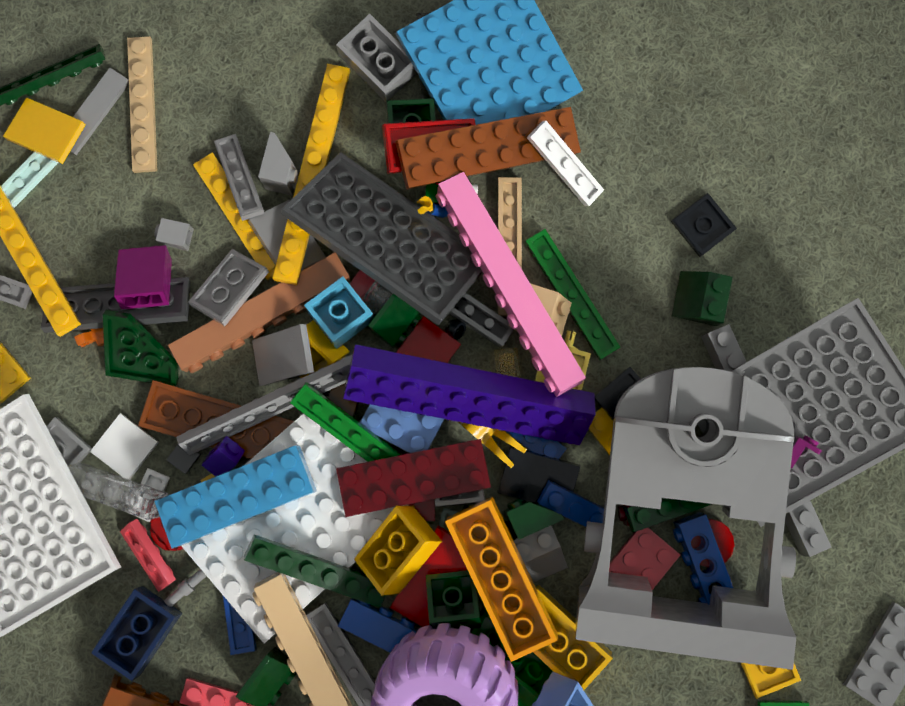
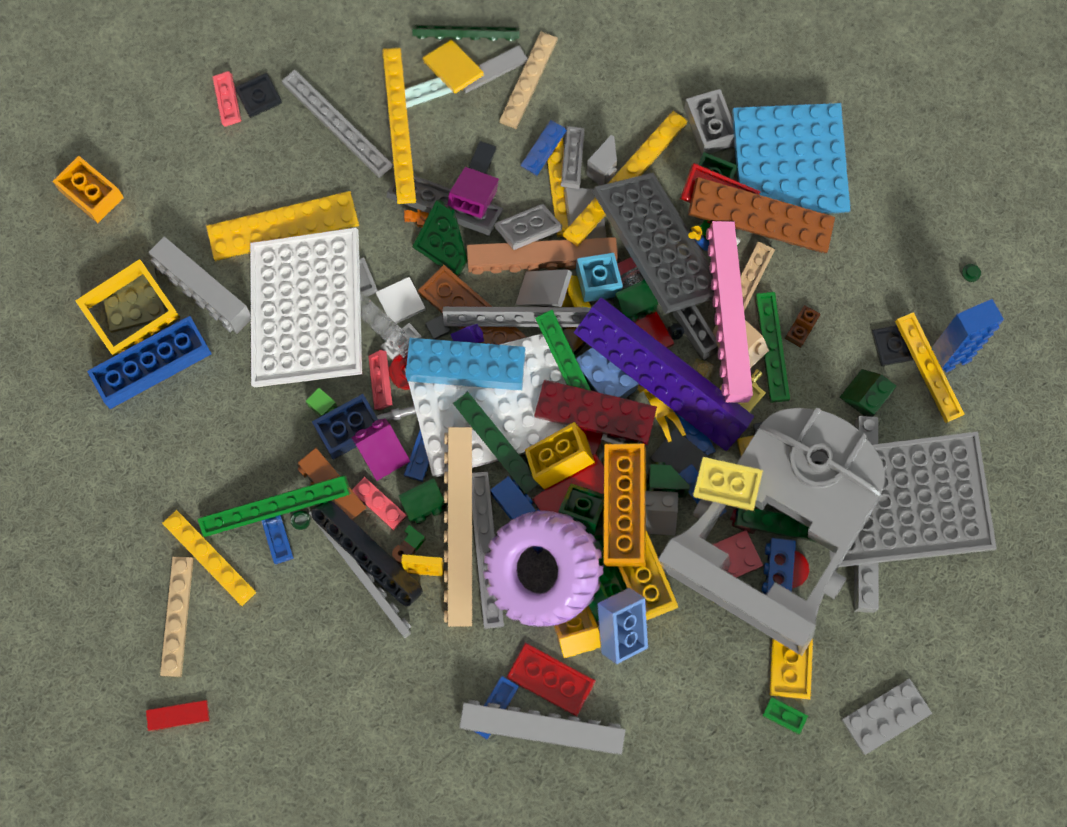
camera: 30 degrees right, 10 degrees down
(93, 618) = (321, 403): none -> bright green brick
(135, 227) = (482, 157): none -> black tile
(174, 234) = (508, 174): light grey brick -> none
(187, 644) = (380, 449): none -> magenta brick
(199, 181) = (543, 147): none -> blue plate
(565, 163) = (811, 253): white plate -> none
(593, 253) = (802, 326): none -> reddish brown slope
(612, 507) = (728, 483): none -> light yellow plate
(748, 99) = (971, 273): none -> dark green plate
(755, 235) = (929, 367): none -> yellow plate
(795, 187) = (967, 335): none -> blue brick
(799, 445) = (878, 518): magenta bracket -> none

